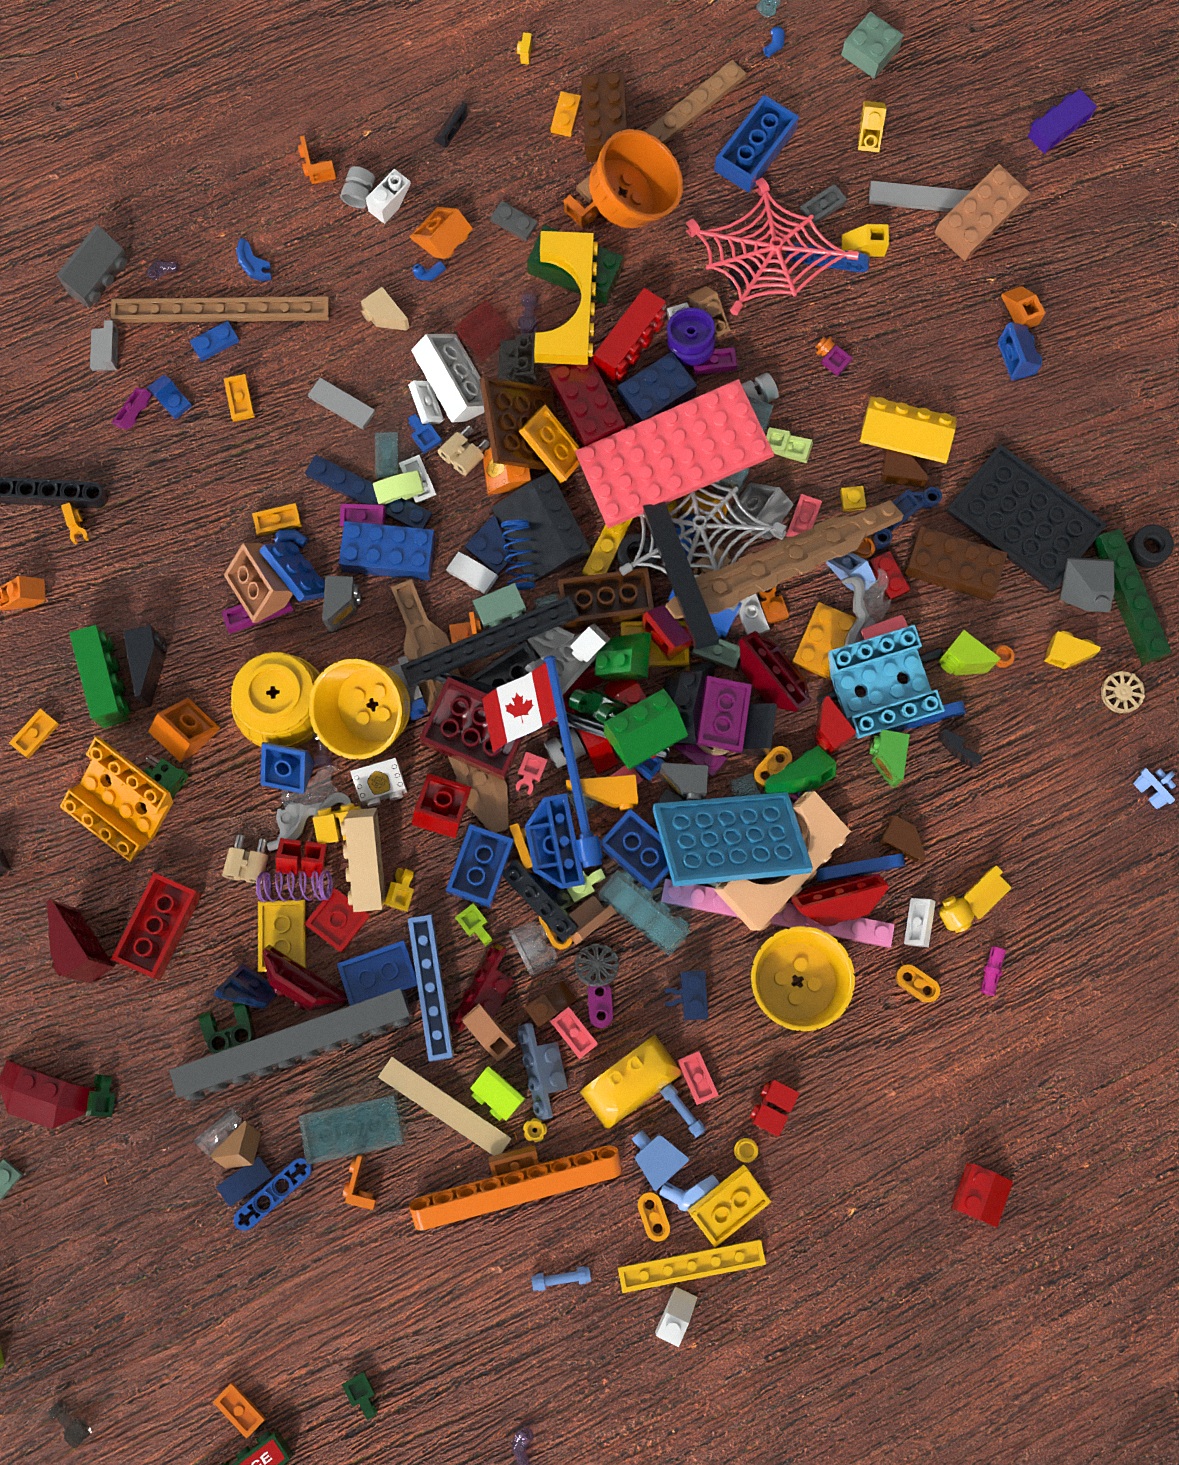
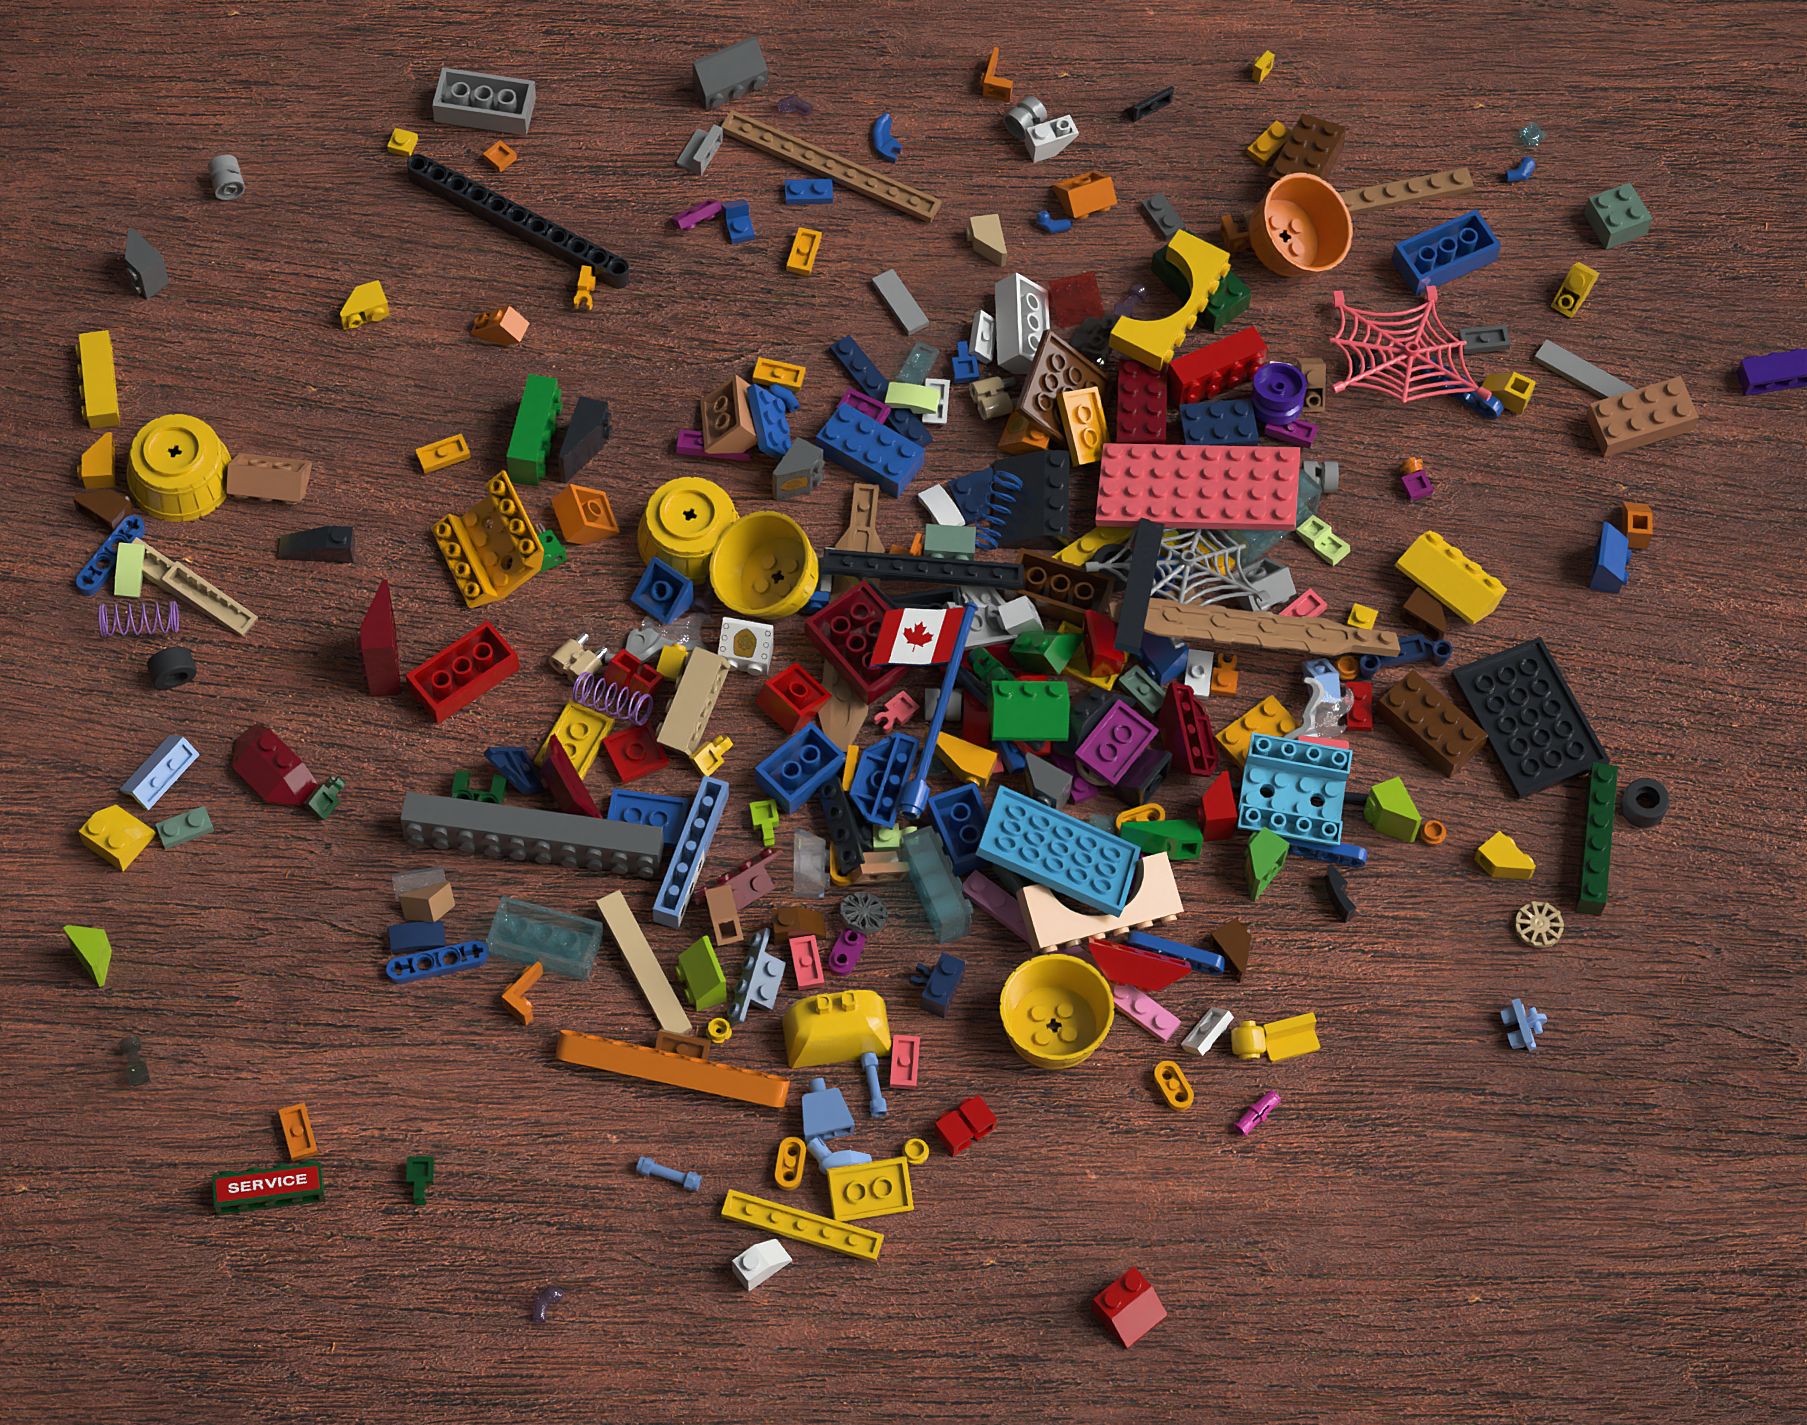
camera: 25 degrees right, 15 degrees down
(1088, 584) = (1557, 802): dark grey slope -> none

